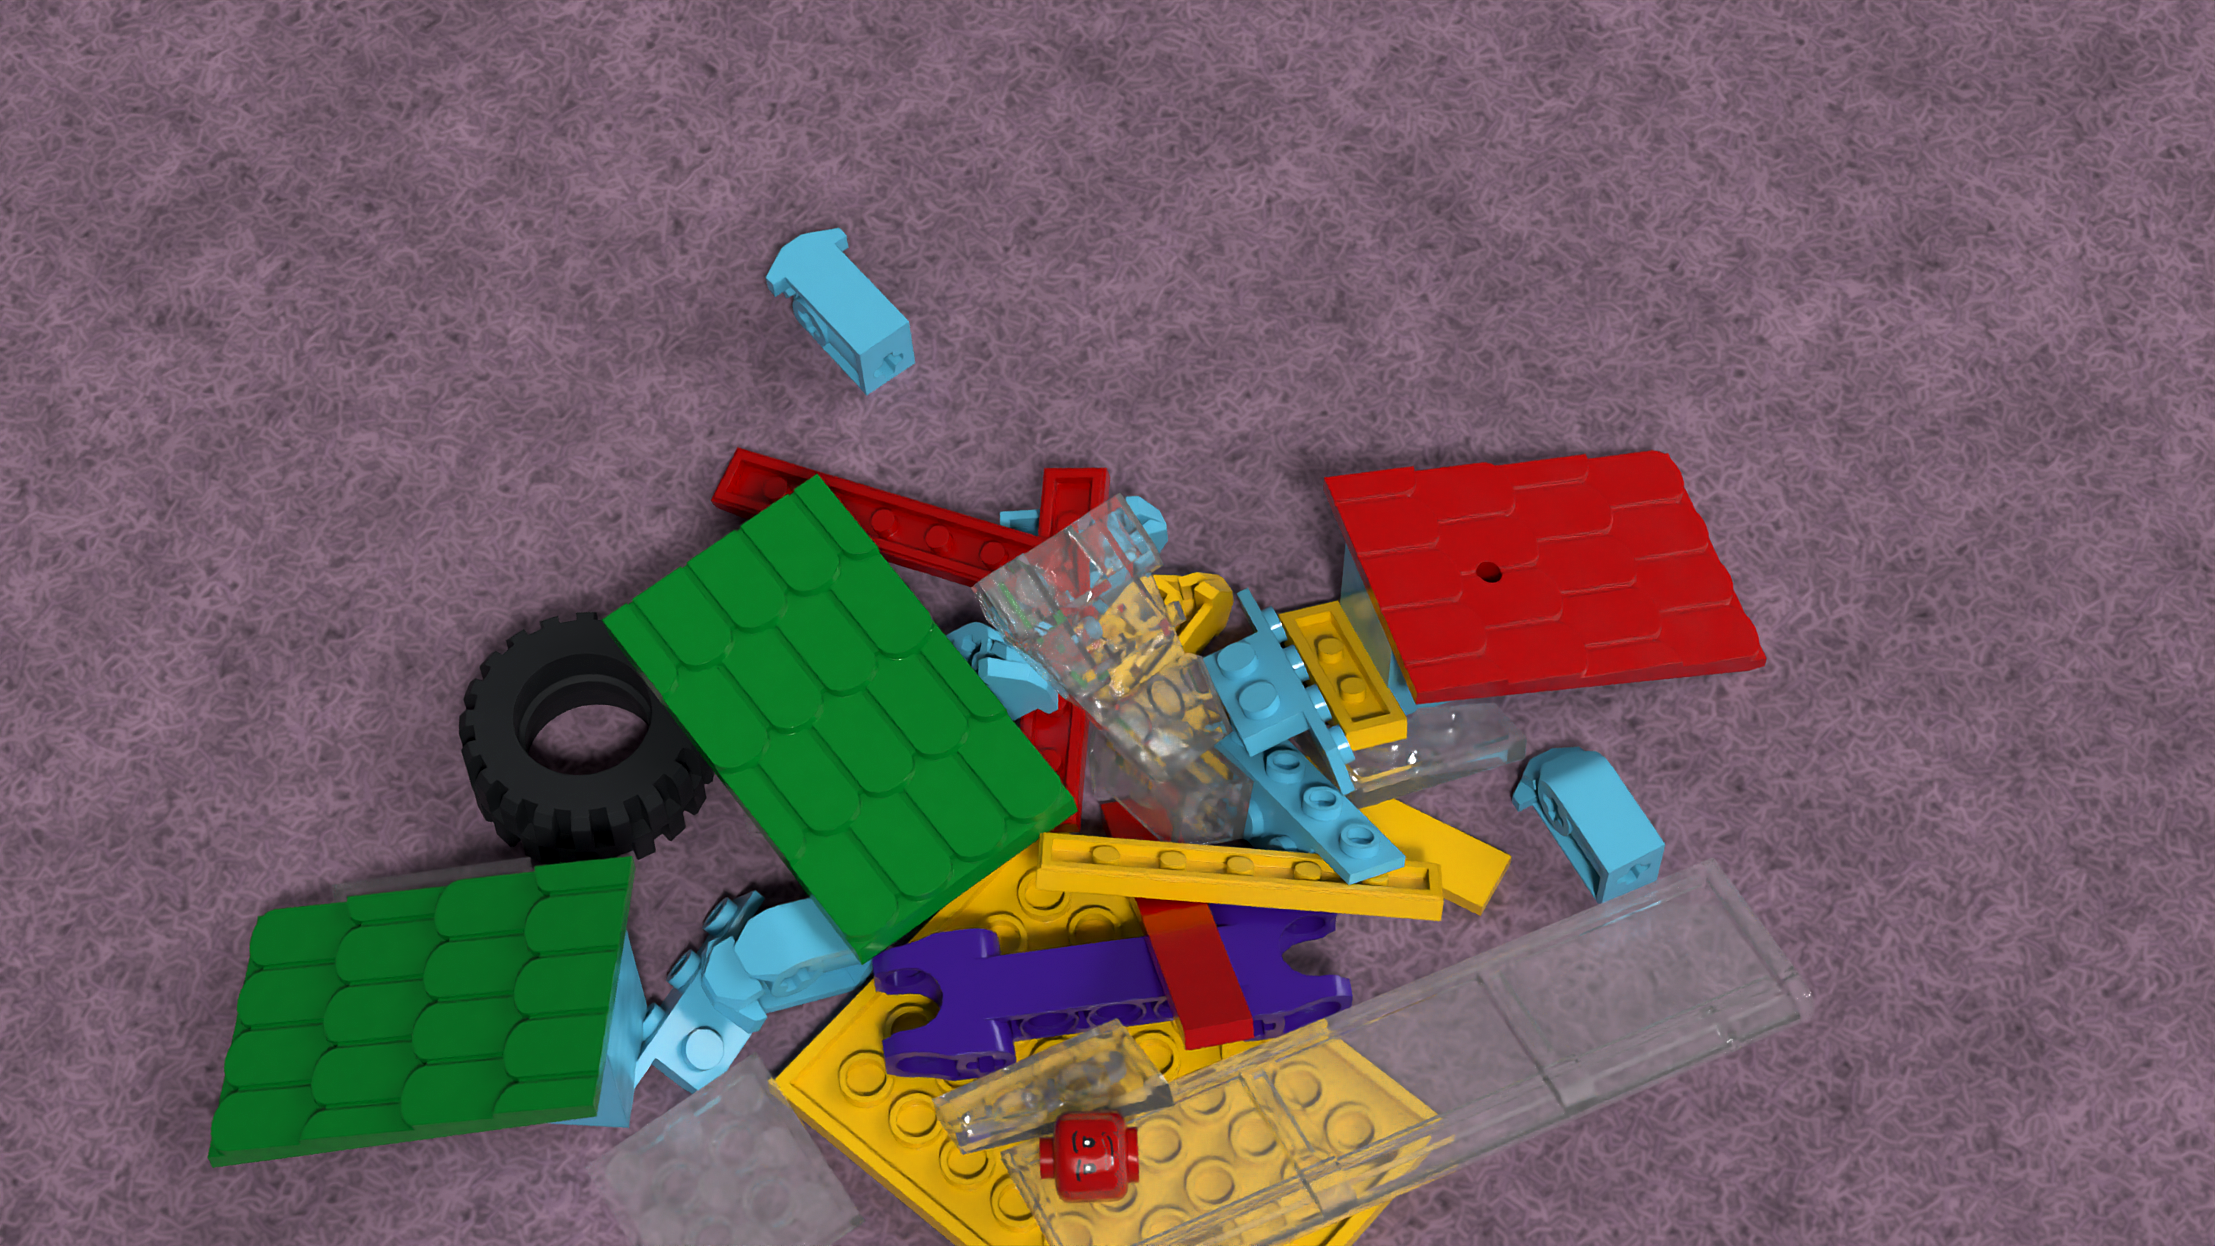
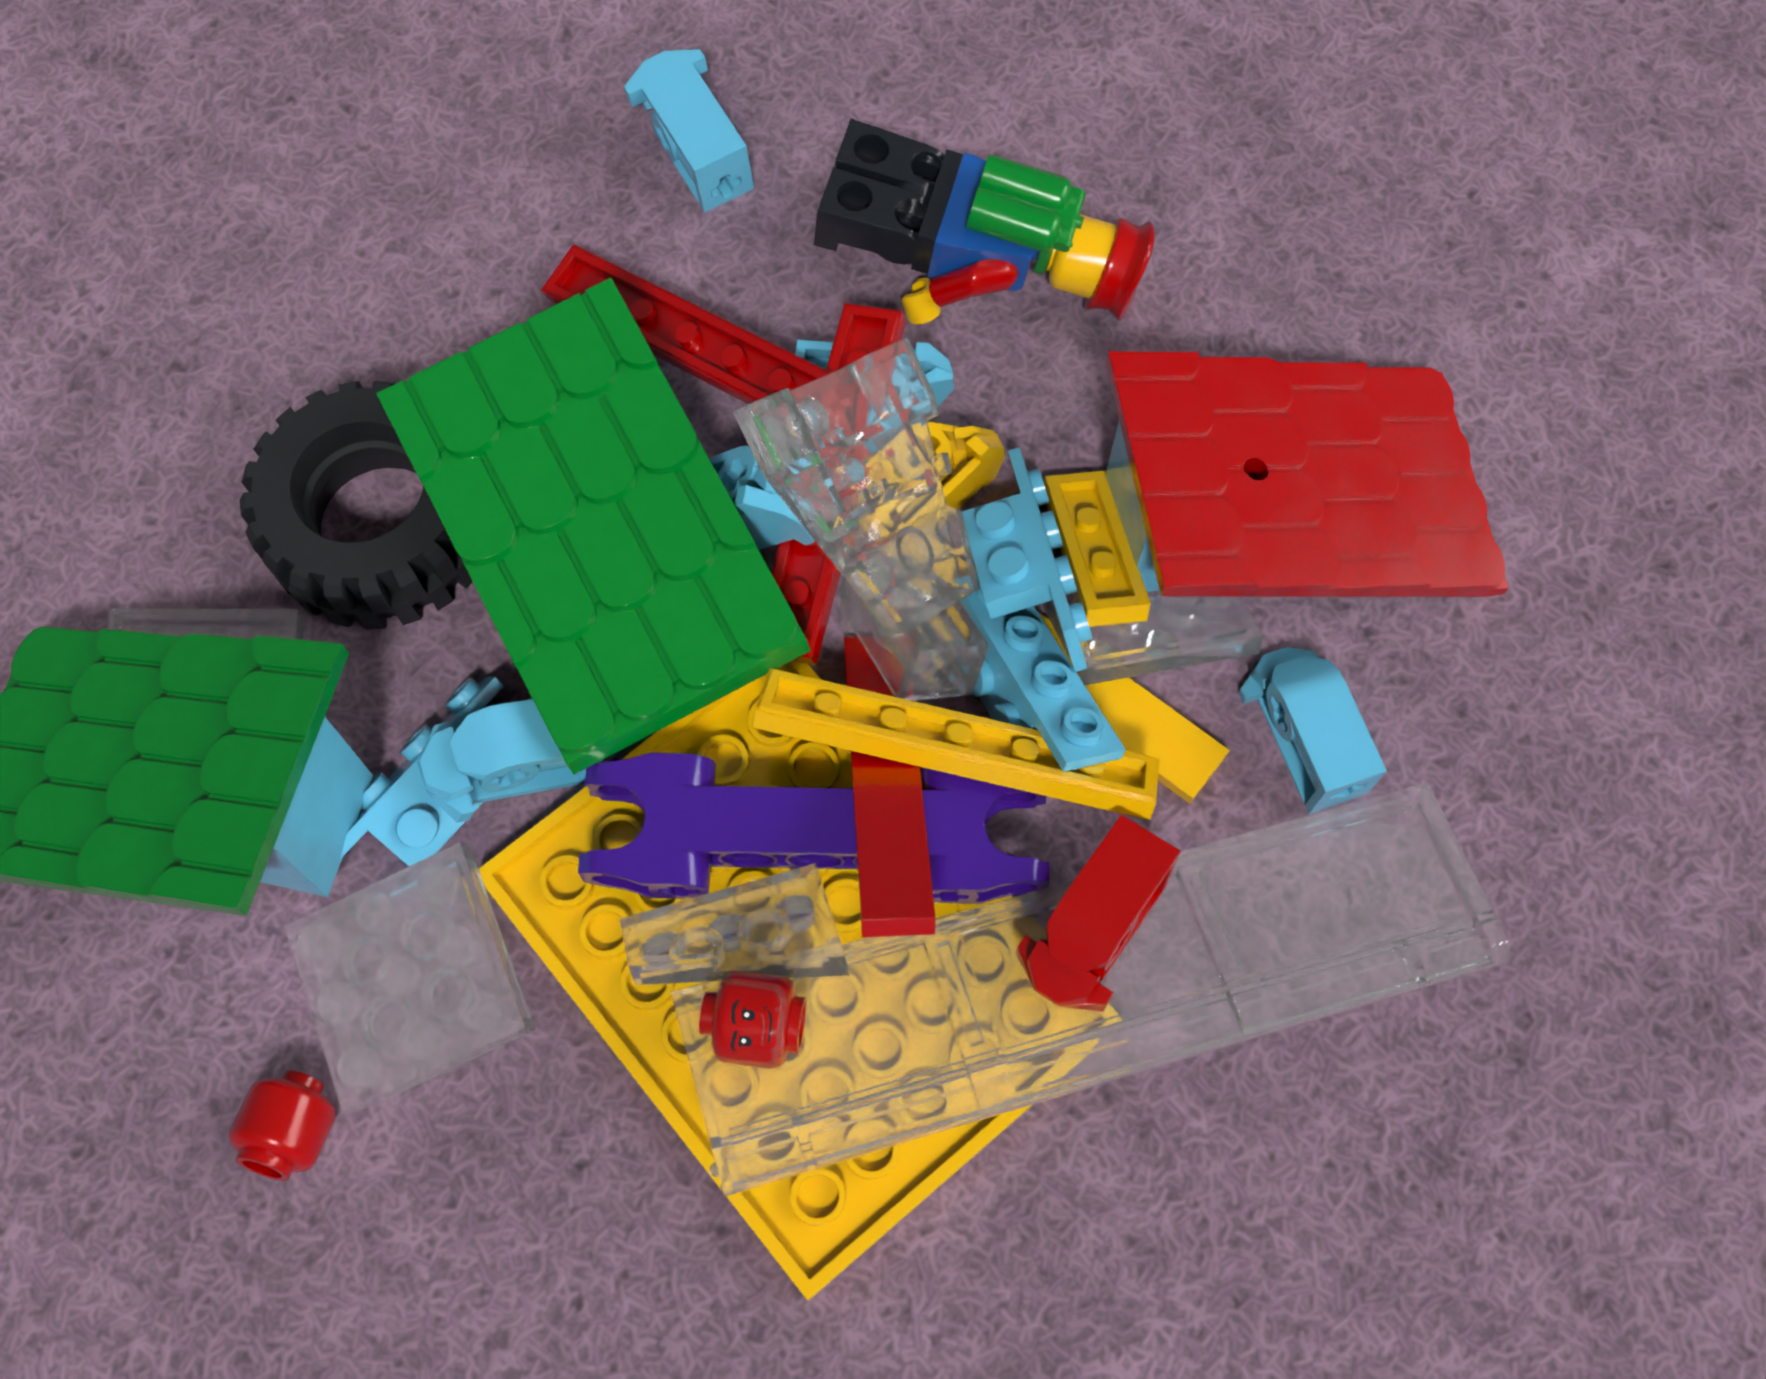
camera: 10 degrees right, 10 degrees up
(1162, 370) = (974, 224): none -> piece
(1407, 1017) = (1098, 917): none -> red piece

